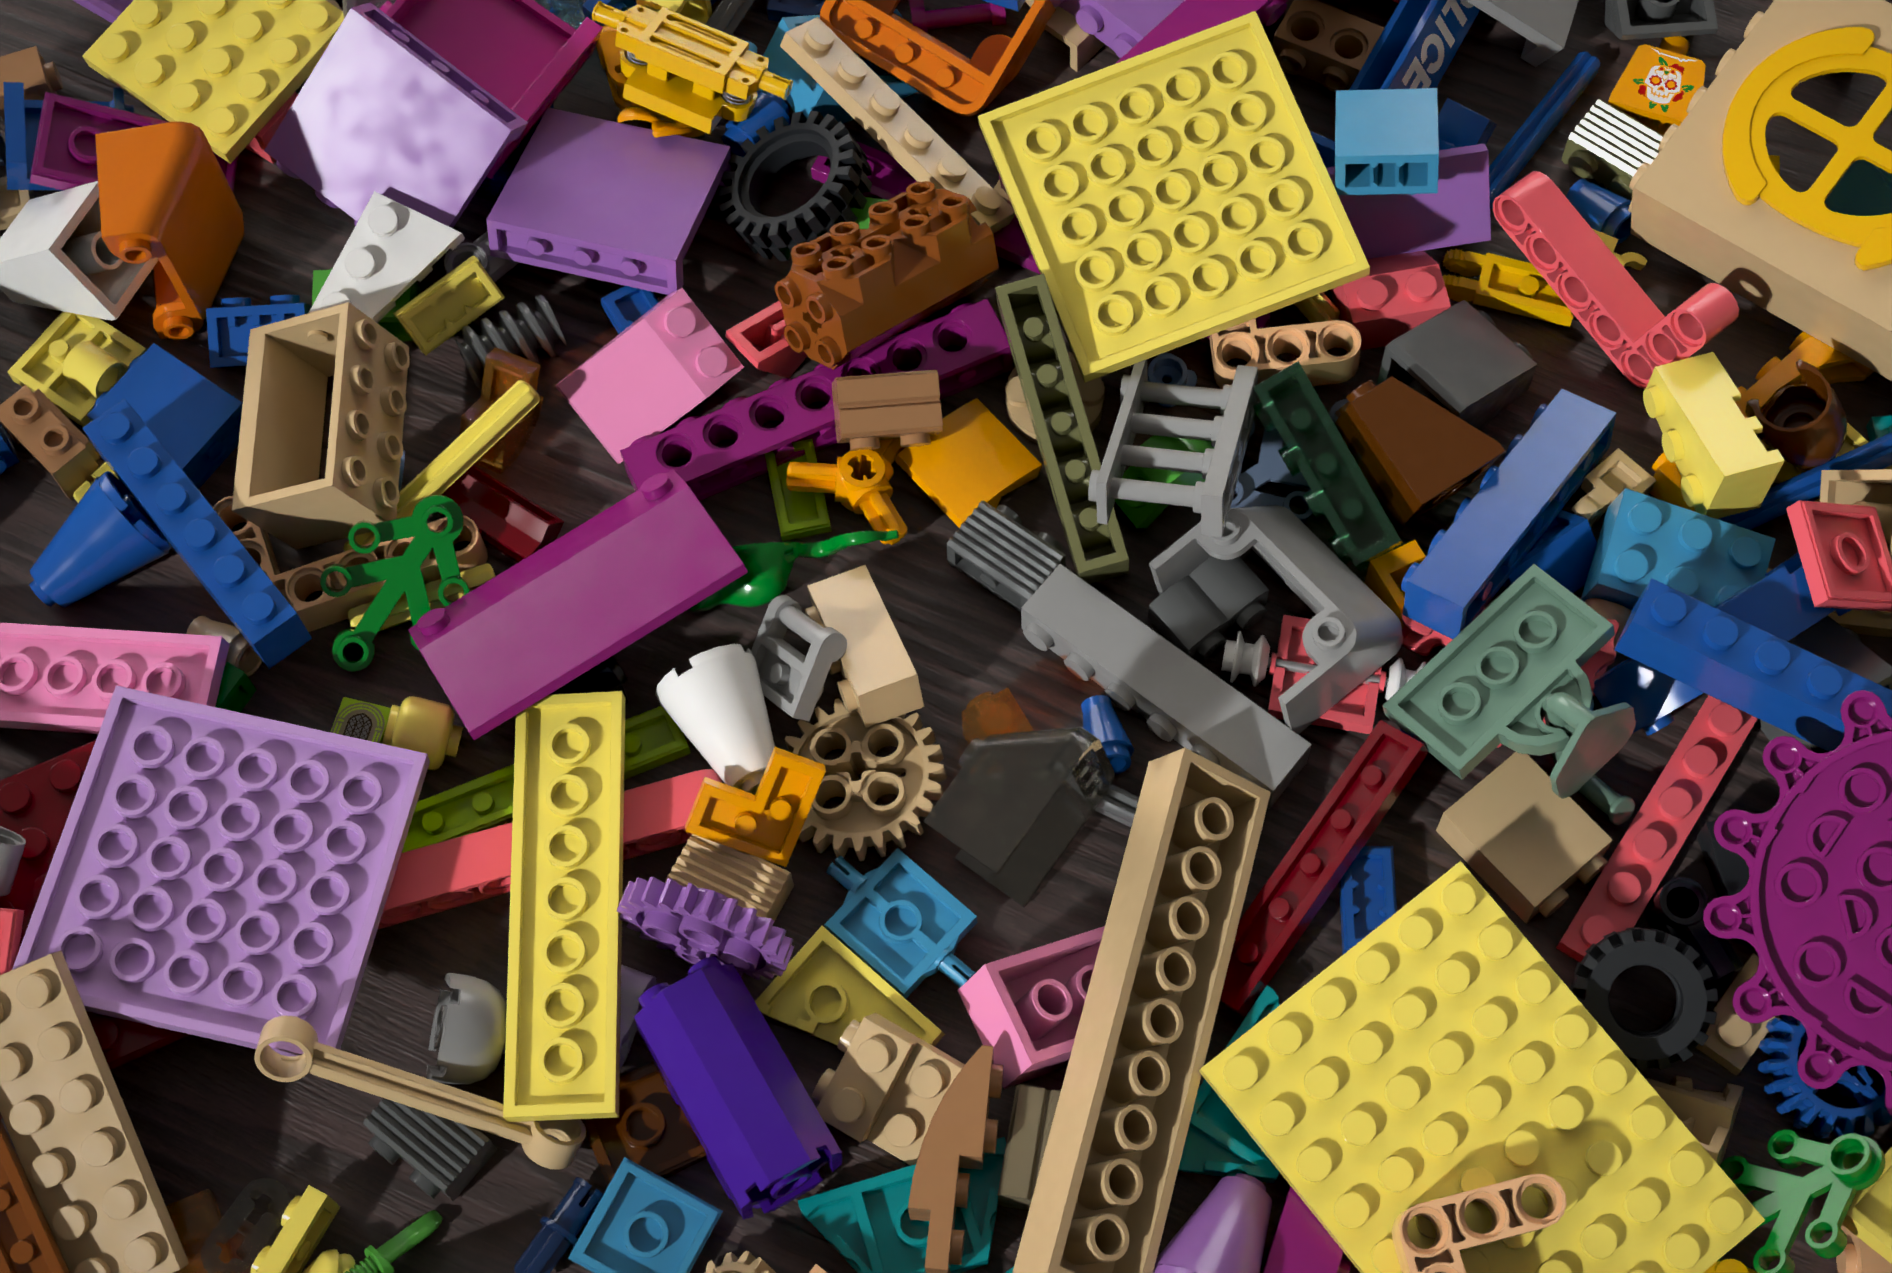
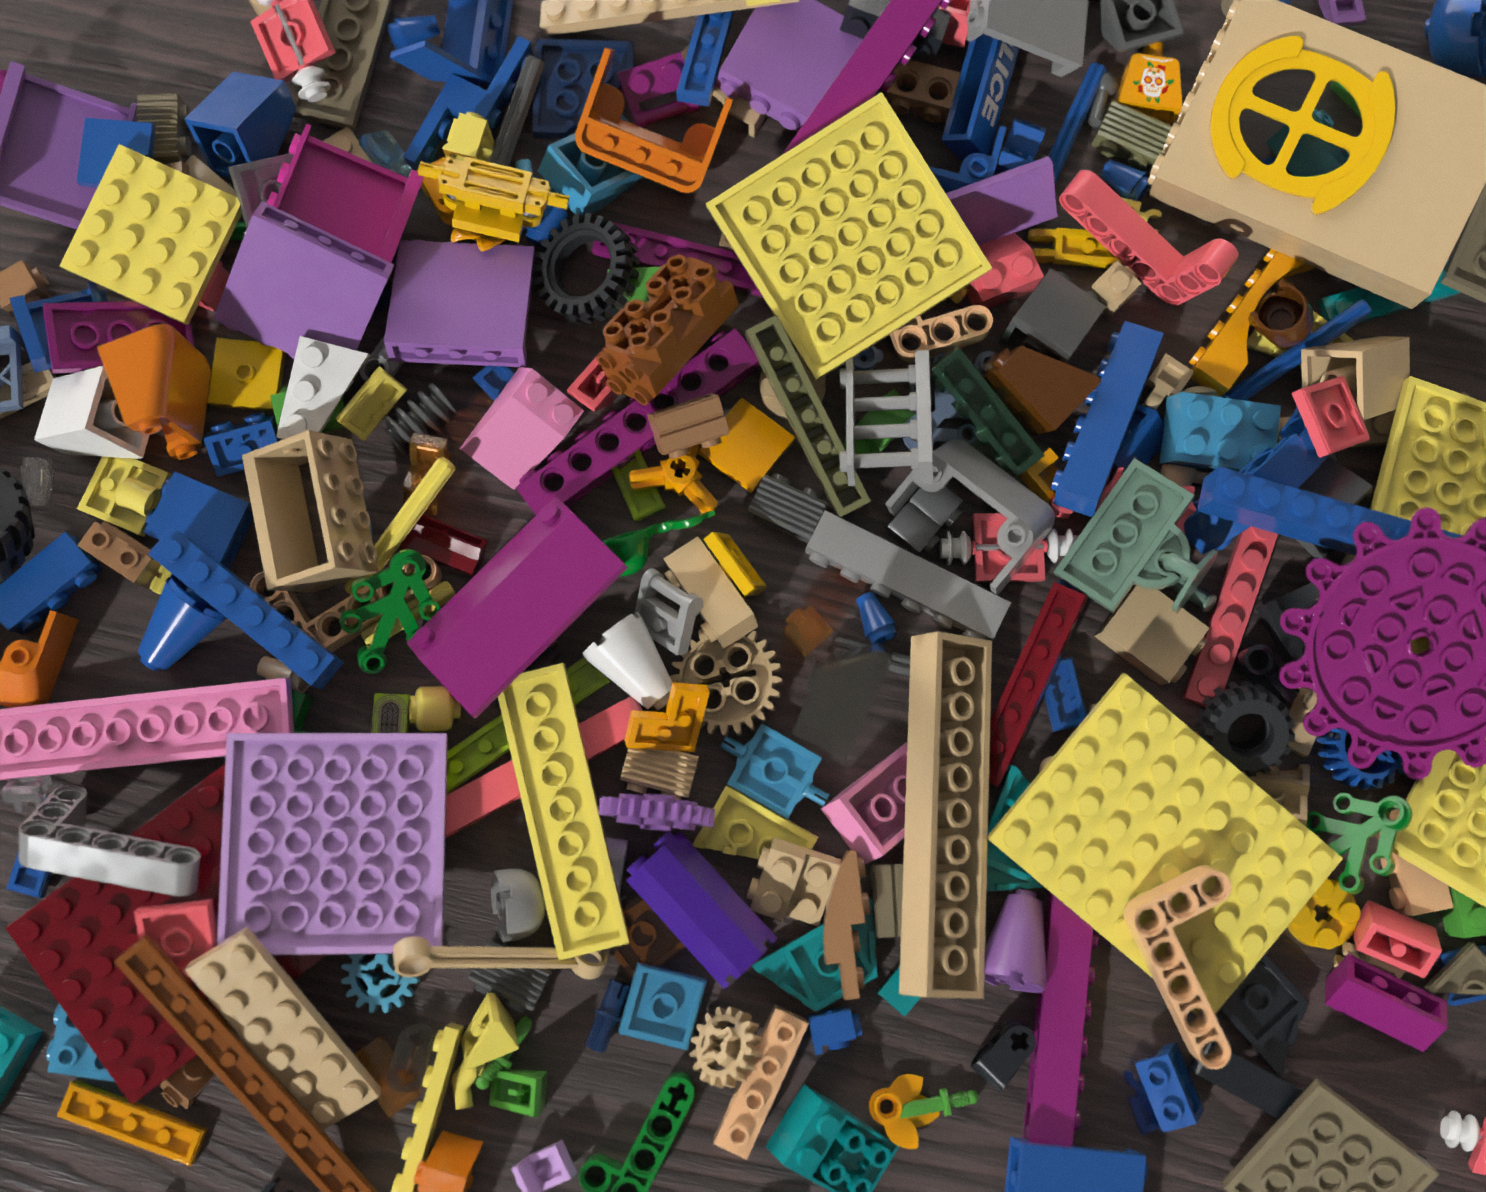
camera: 20 degrees left, 15 degrees up
(231, 1113) = (377, 988): none -> medium azure gear
(287, 244) = (245, 374): none -> yellow plate
(375, 1215) = (489, 1033): none -> light yellow slope
(891, 119) = (642, 209): tan plate -> none
(910, 612) = (735, 564): none -> yellow plate
(1386, 141) = (987, 173): dark azure brick -> none
(1558, 346) = (1115, 287): none -> tan brick
(1598, 86) = (1106, 89): none -> dark grey bar
(1709, 438) = (1228, 342): light yellow wedge -> none

